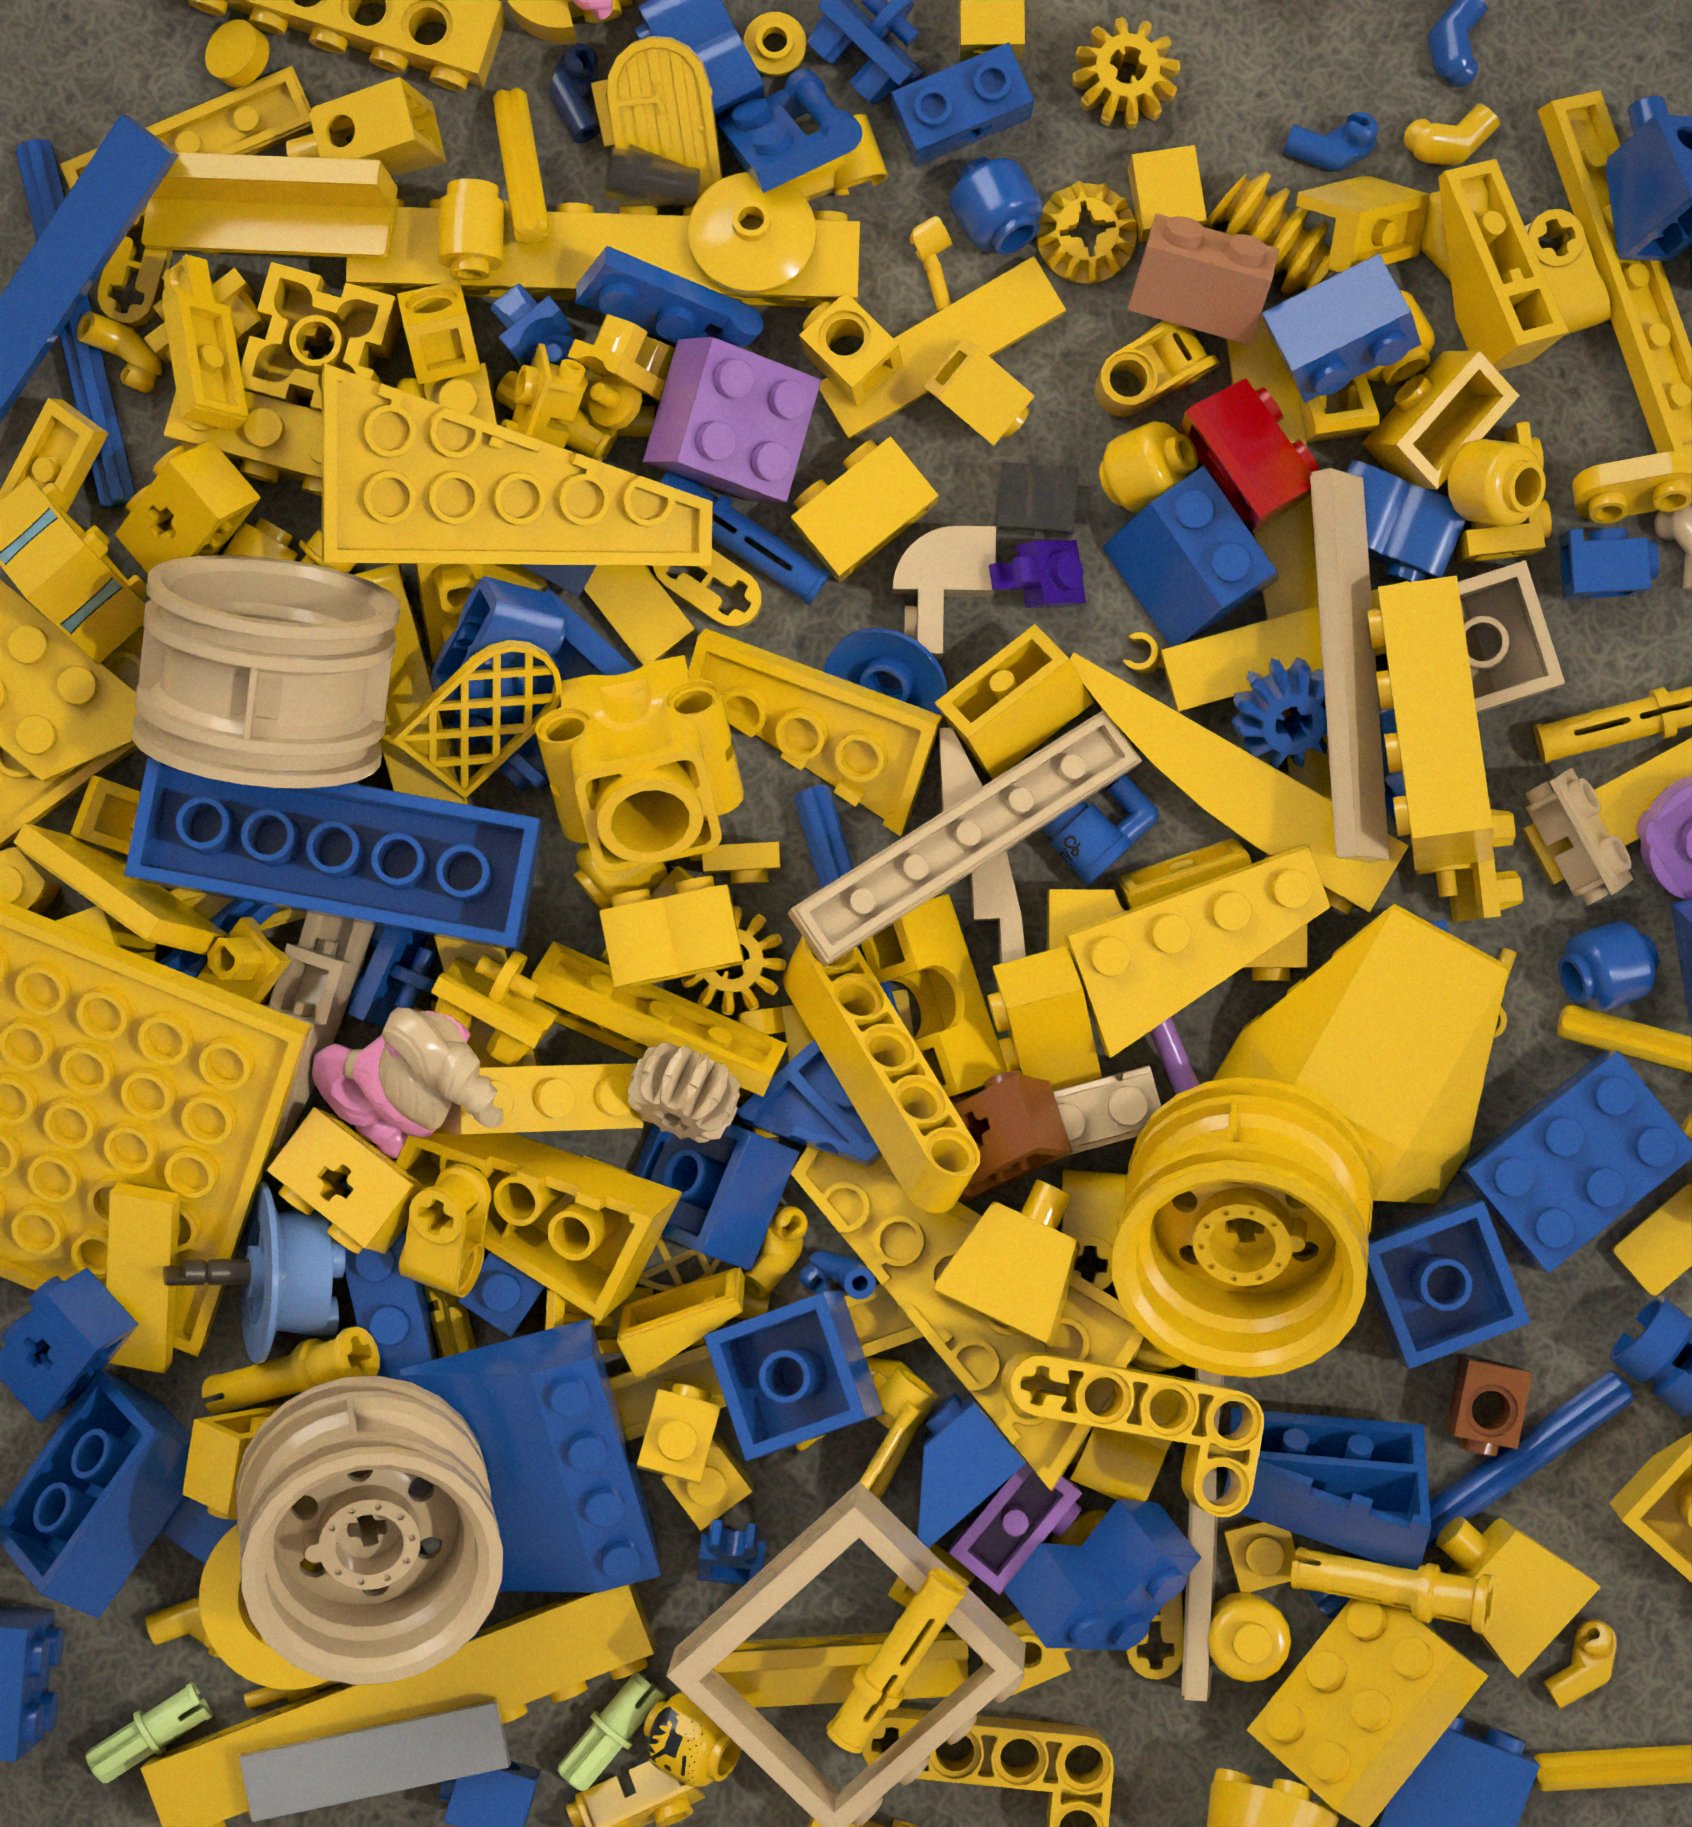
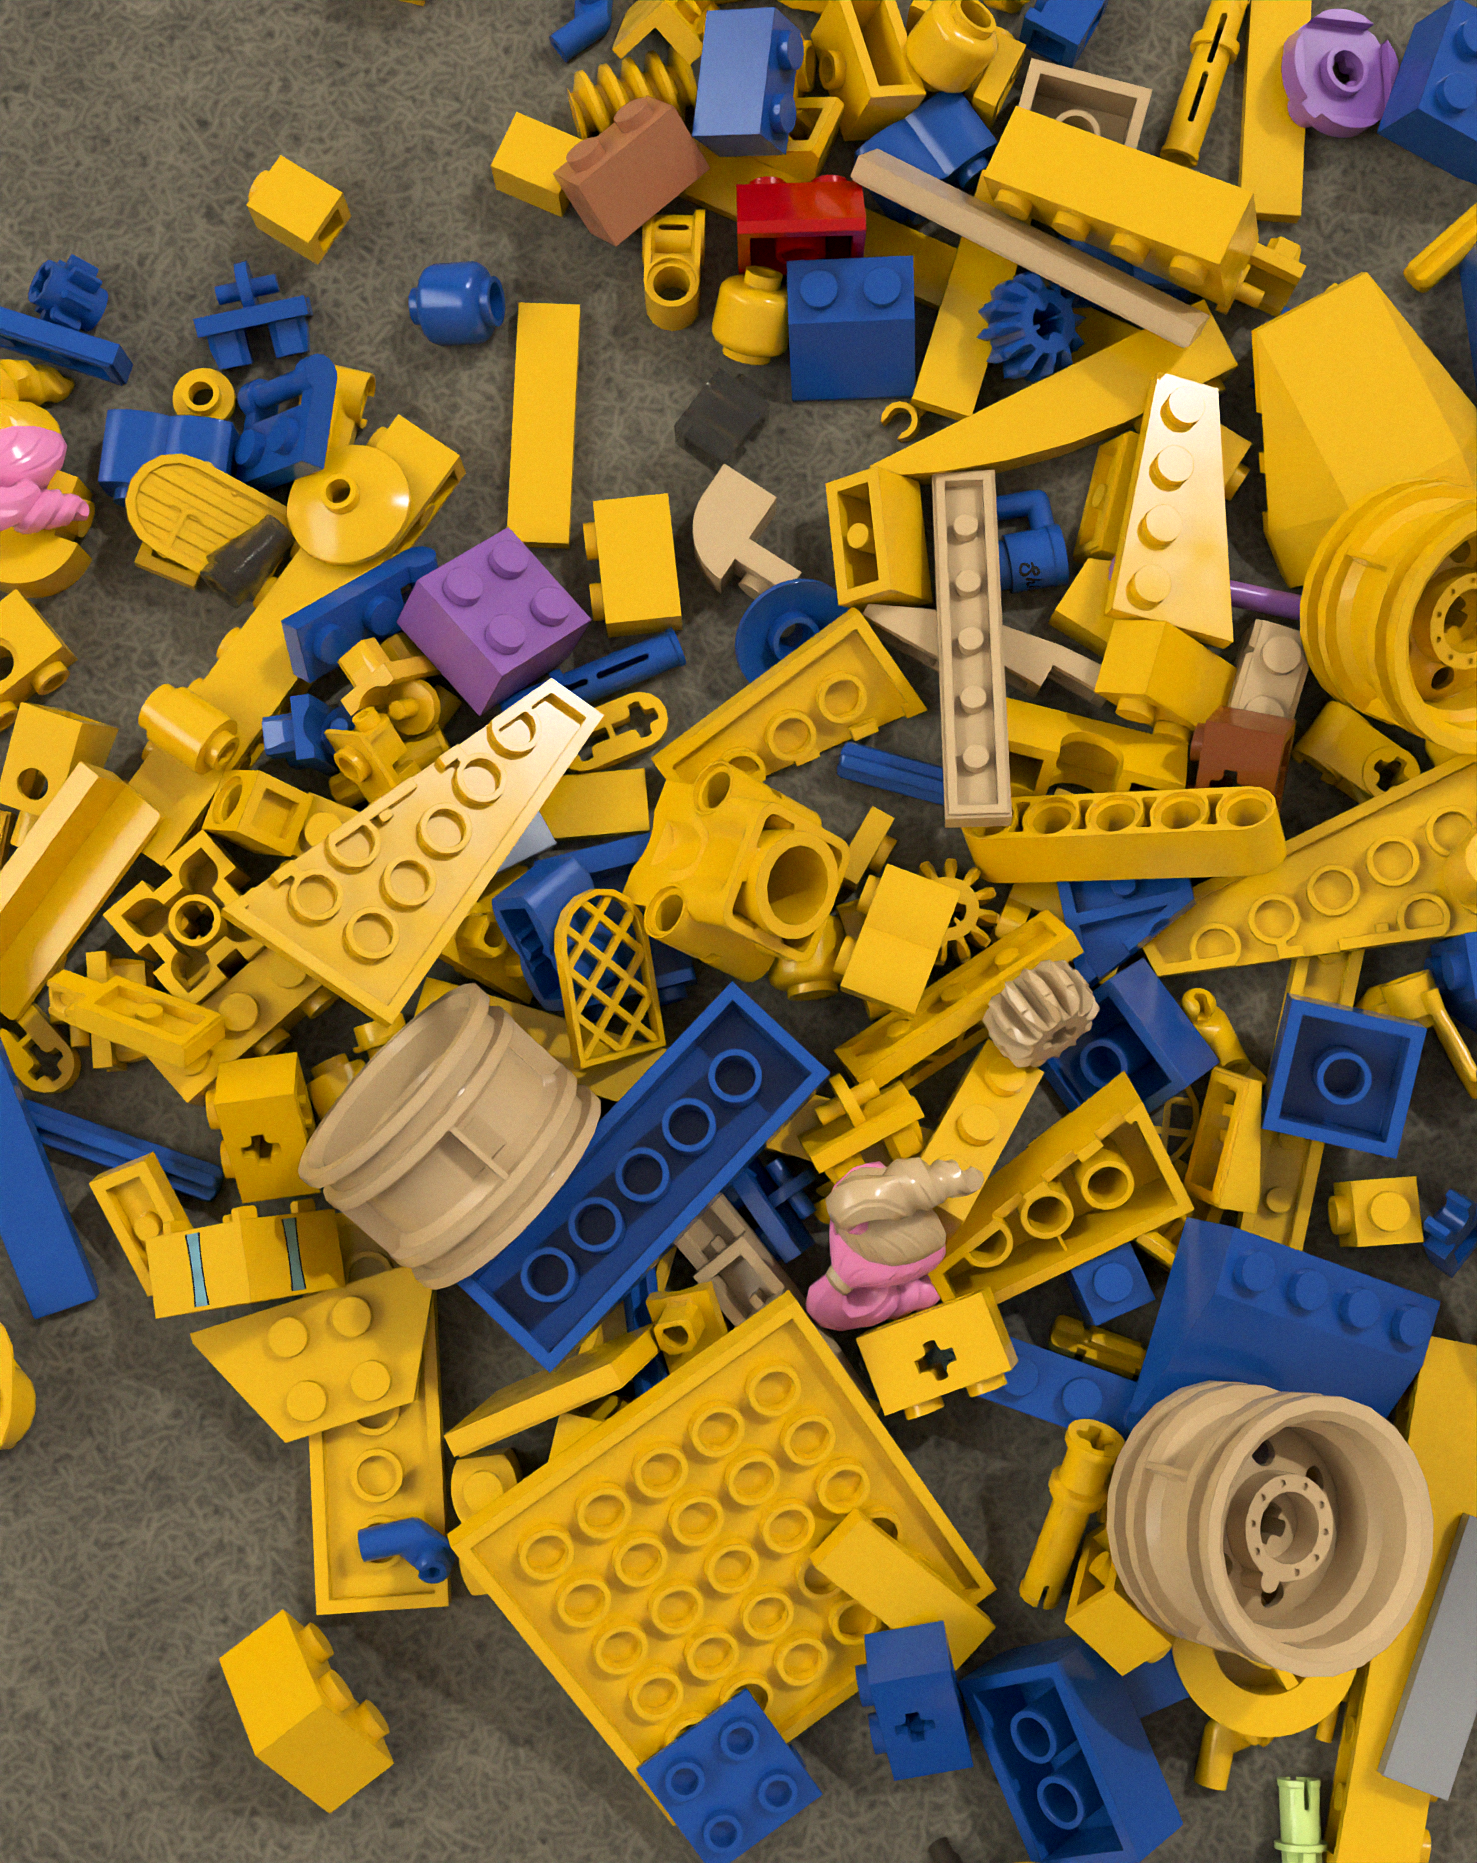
camera: 60 degrees left, 5 degrees down
(107, 814) = (484, 1360): yellow bracket -> none
(124, 342) = (87, 1091): yellow arm -> none
(281, 1274) = (977, 1468): medium blue piece -> none
(448, 1231) = (1035, 1292): yellow piece -> none
(521, 166) = (164, 660): yellow axle -> none
(572, 89) = (129, 586): dark blue arm -> none
(679, 1433) = (1331, 1204): yellow bracket -> none
(846, 1271) = (1268, 983): blue arm -> none
(856, 373) = (518, 504): yellow brick -> none
(930, 240) = (449, 374): yellow hand -> none
(962, 104) = (357, 277): blue brick -> none
(980, 392) = (603, 409): yellow brick -> none
(1016, 1265) = (1367, 825): yellow torso -> none
(1045, 572) = (787, 452): dark purple plate -> none
(1068, 255) = (537, 275): yellow gear -> none
(1100, 73) = (403, 152): yellow gear -> none
(1595, 854) = (1303, 169): tan hinge -> none
(1608, 966) = (1396, 213): blue head -> none

